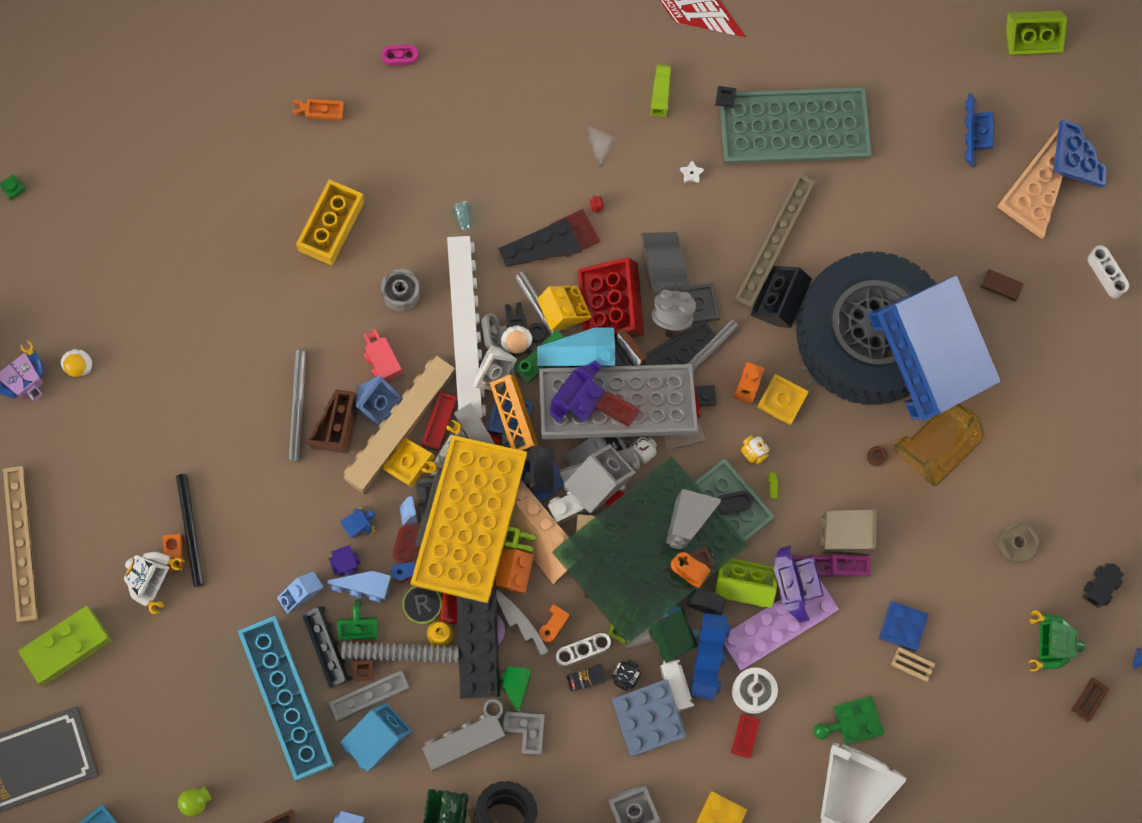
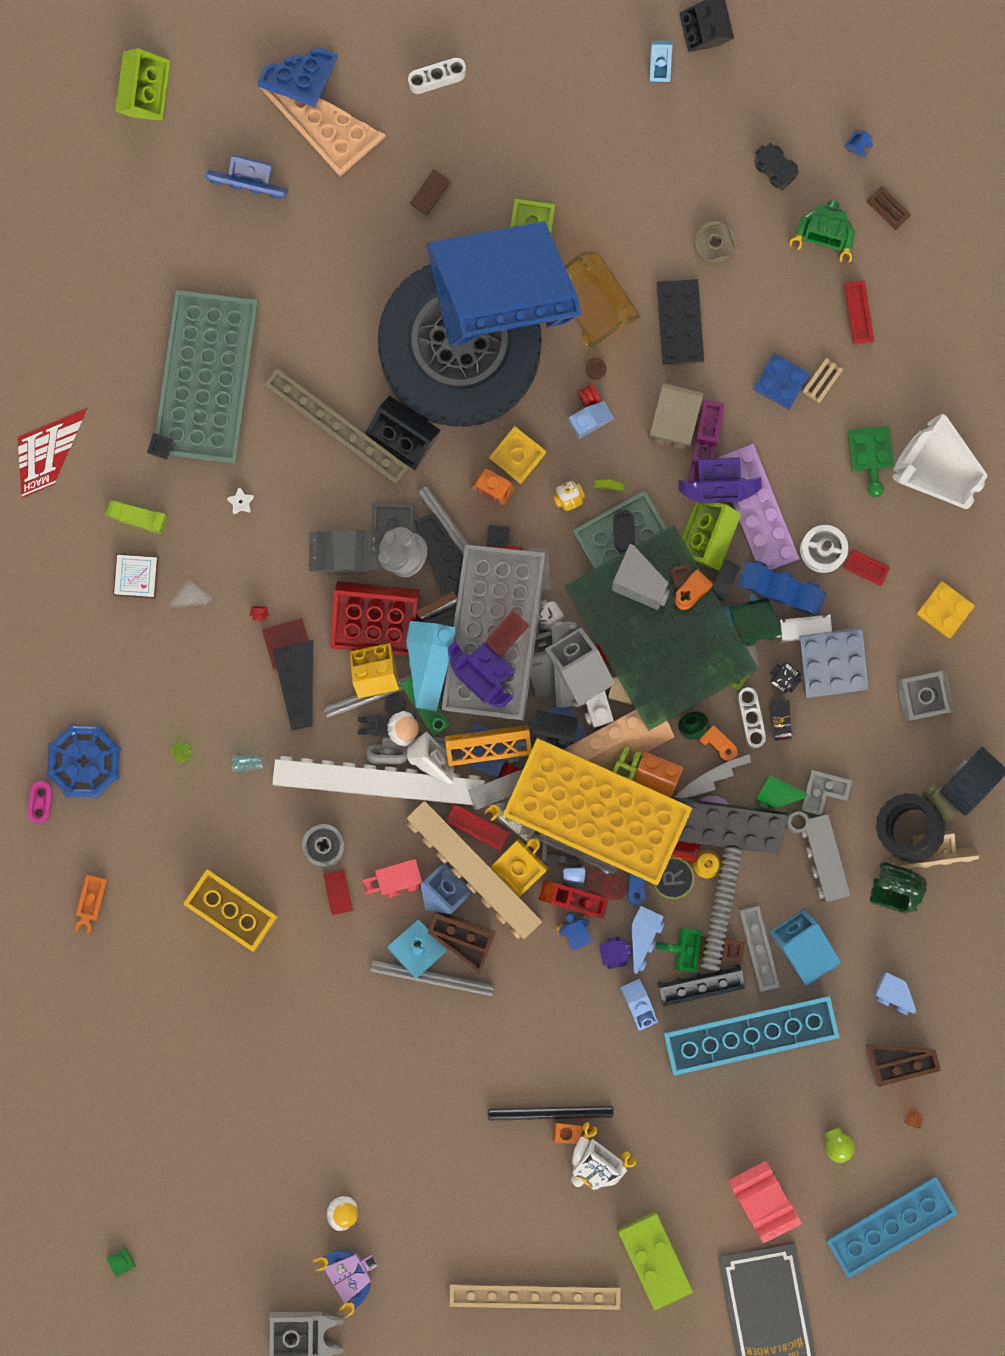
camera: 75 degrees left, 10 degrees up
(131, 737) = (764, 1202): none -> coral slope
(320, 385) = (416, 949): none -> medium azure tile
(361, 312) = (338, 892): none -> red slope
(387, 516) = (573, 899): none -> red slope
(436, 75) = (75, 752): none -> blue plate
(463, 166) = (175, 752): none -> clear neon green plate
(566, 597) = (693, 725): none -> dark green plate
(609, 99) = (135, 576): none -> white tile
(829, 457) = (590, 419): none -> light blue slope
(850, 452) = (588, 395): none -> red wheel
(937, 524) = (680, 321): none -> black plate
(984, 687) = (858, 312): none -> red plate
(1007, 374) = (531, 212): none -> lime plate

